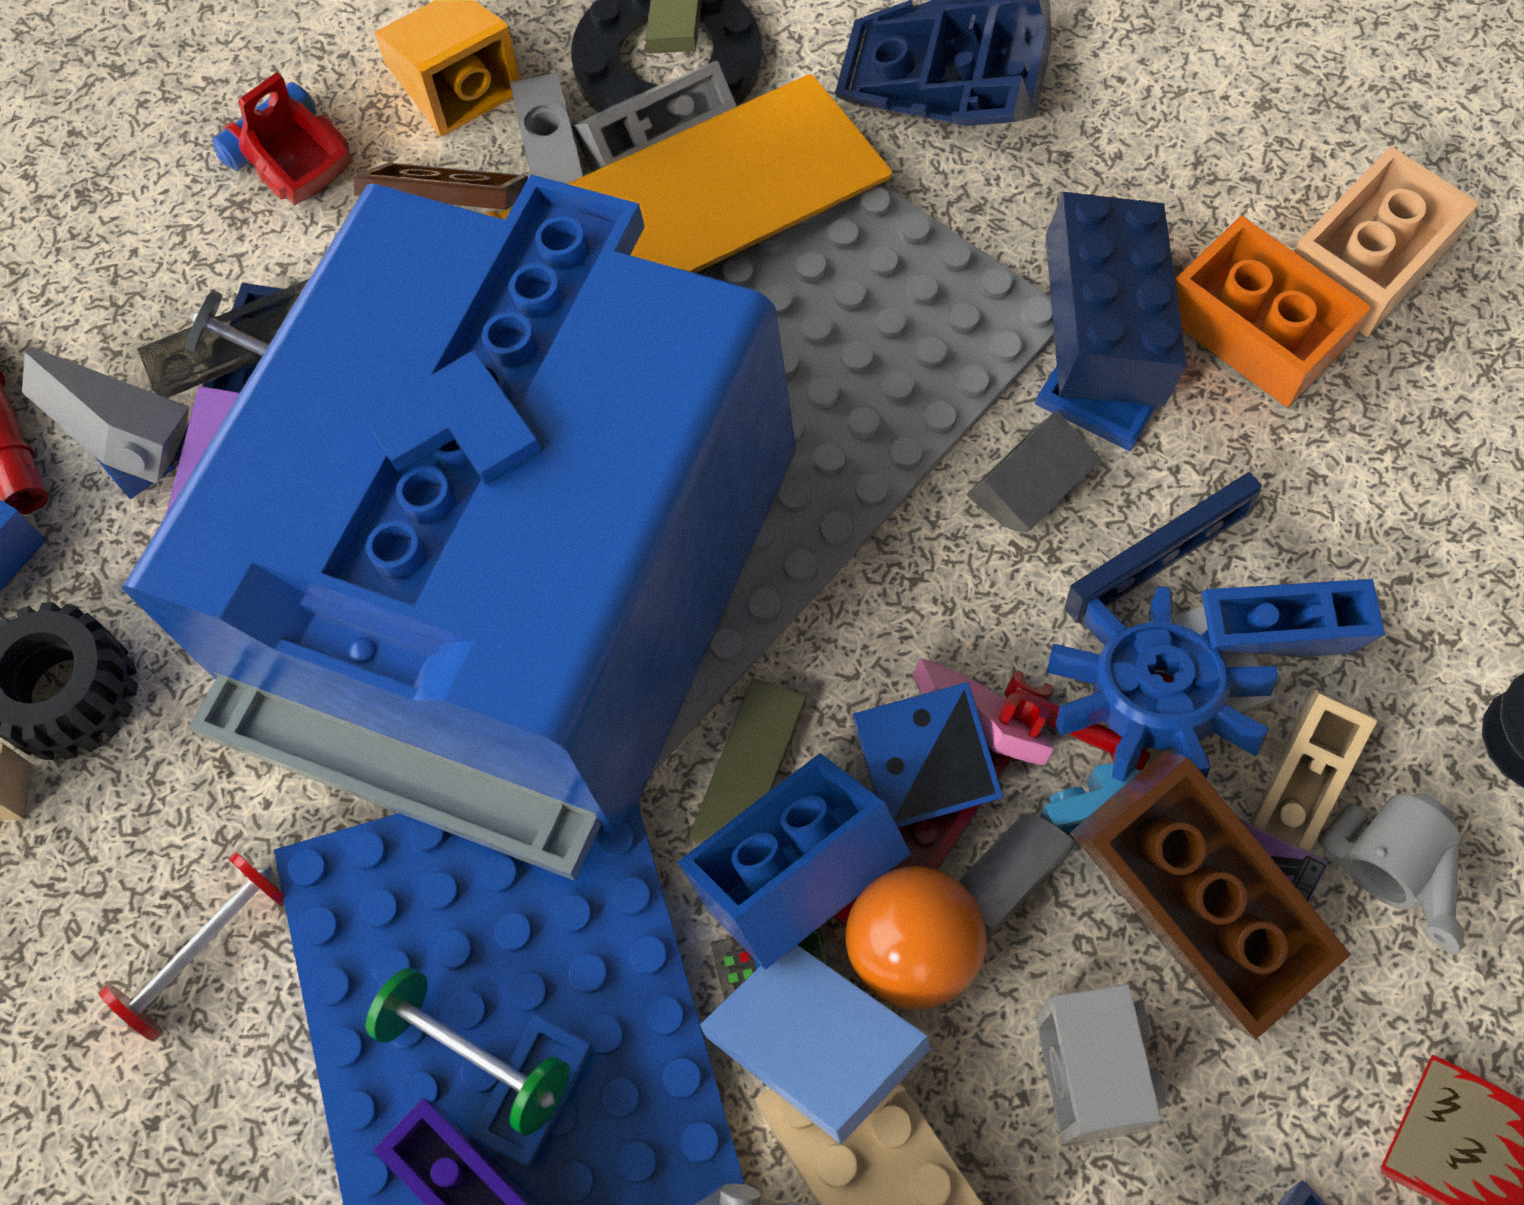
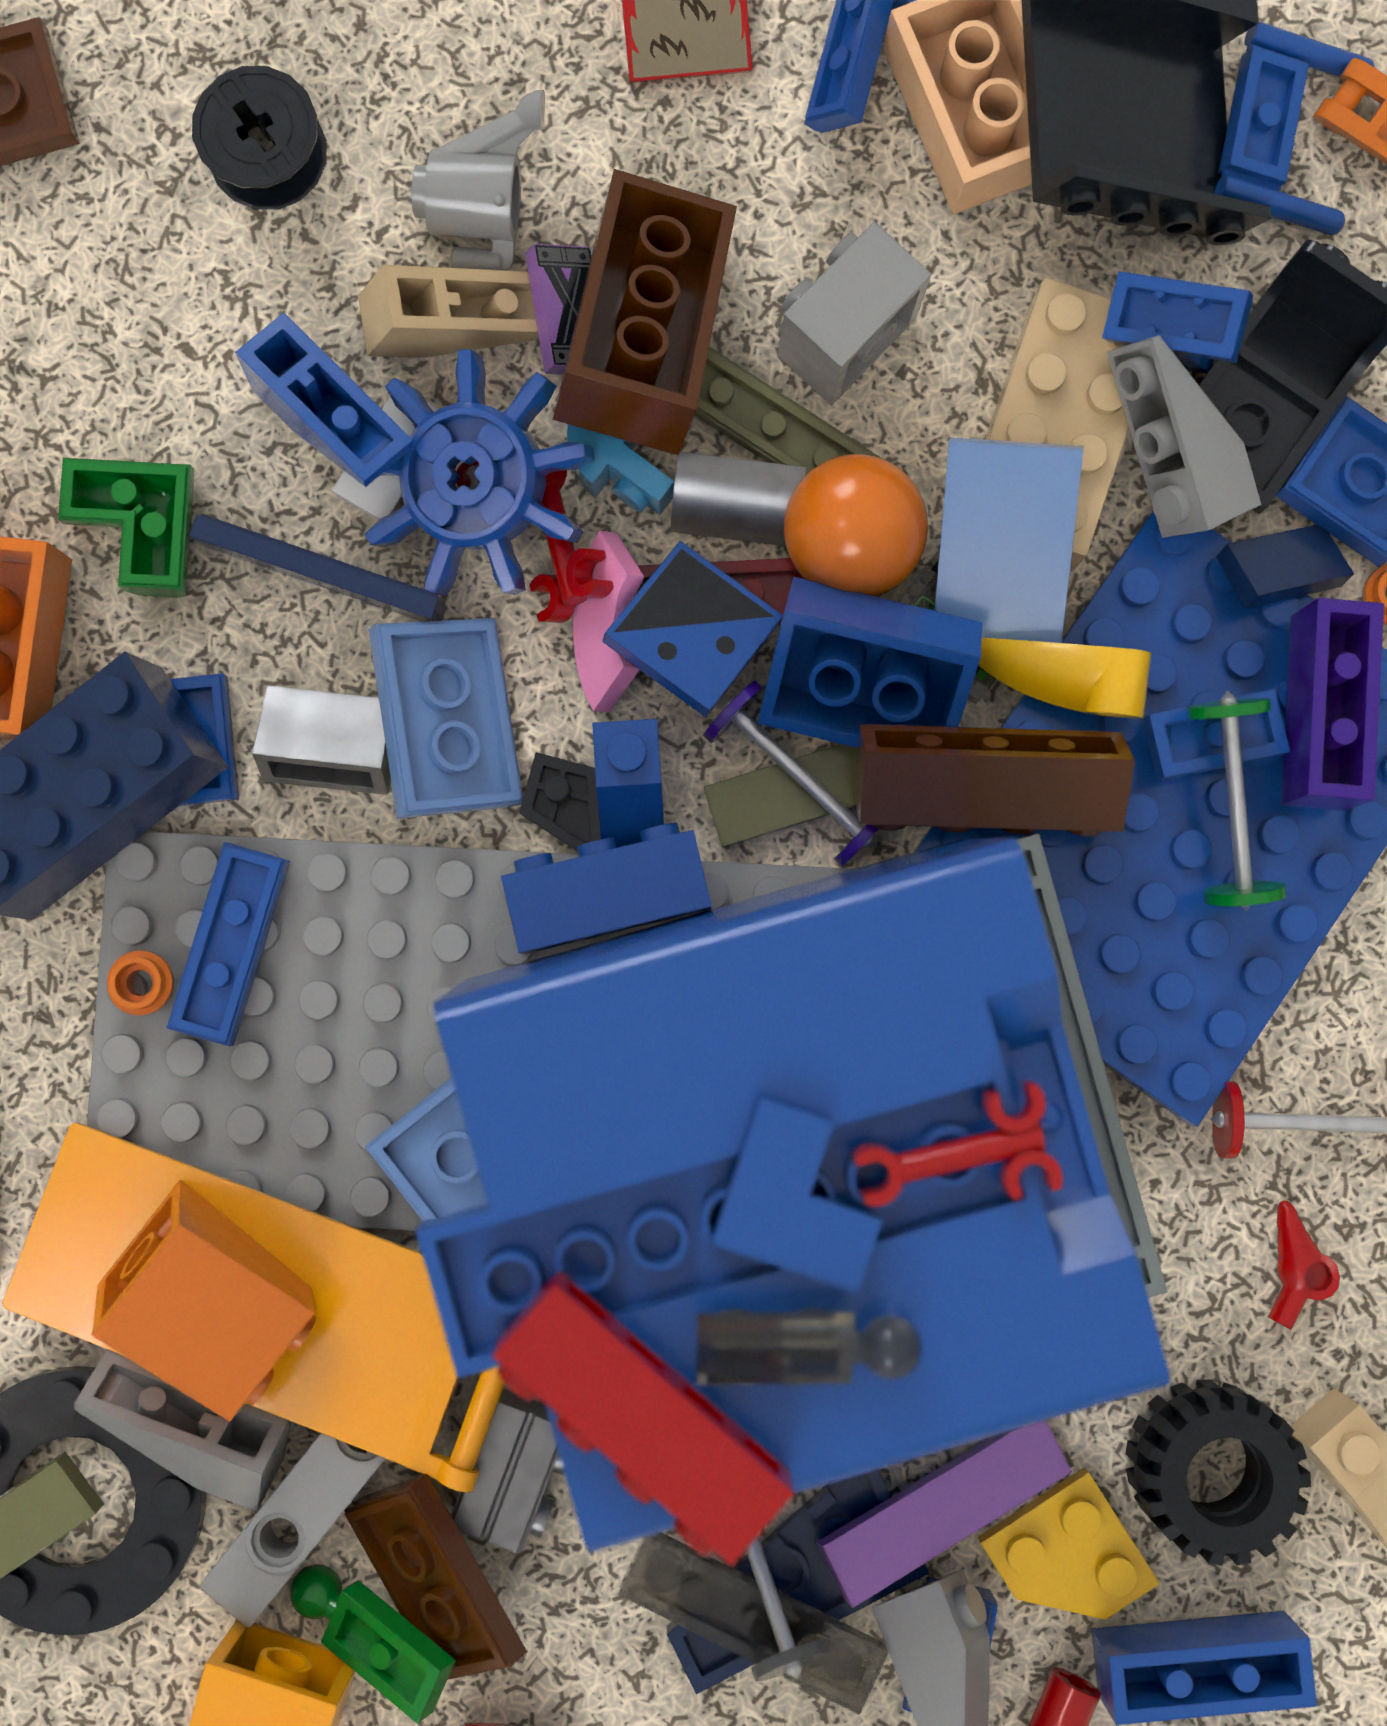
camera: 135 degrees left, 20 degrees up
(95, 559) = (1069, 1552): none -> yellow plate
(117, 856) = (1300, 1267): none -> red animal
(358, 365) = (800, 1347): none -> clear smoke plate
(369, 584) = (1017, 1143): none -> red bar
(407, 245) = (644, 1419): none -> red brick
(442, 140) = (374, 1640): none -> green plate
(640, 876) = (992, 779): none -> reddish brown brick
(658, 1025) = (1072, 675): none -> yellow piece
(715, 152) = (202, 1305): none -> orange slope
(781, 566) = (605, 888): none -> blue brick
(842, 751) = (734, 712): none -> flat silver axle
(848, 644) = (628, 778): none -> blue slope
(867, 598) = (562, 800): none -> black piece
(937, 325) = (228, 944): none -> blue tile
(951, 245) = (121, 982): none -> orange plate
(991, 556) = (445, 716): none -> medium blue tile
(1053, 955) = (767, 419): none -> olive tile
(1292, 471) = (149, 505): none -> green brick

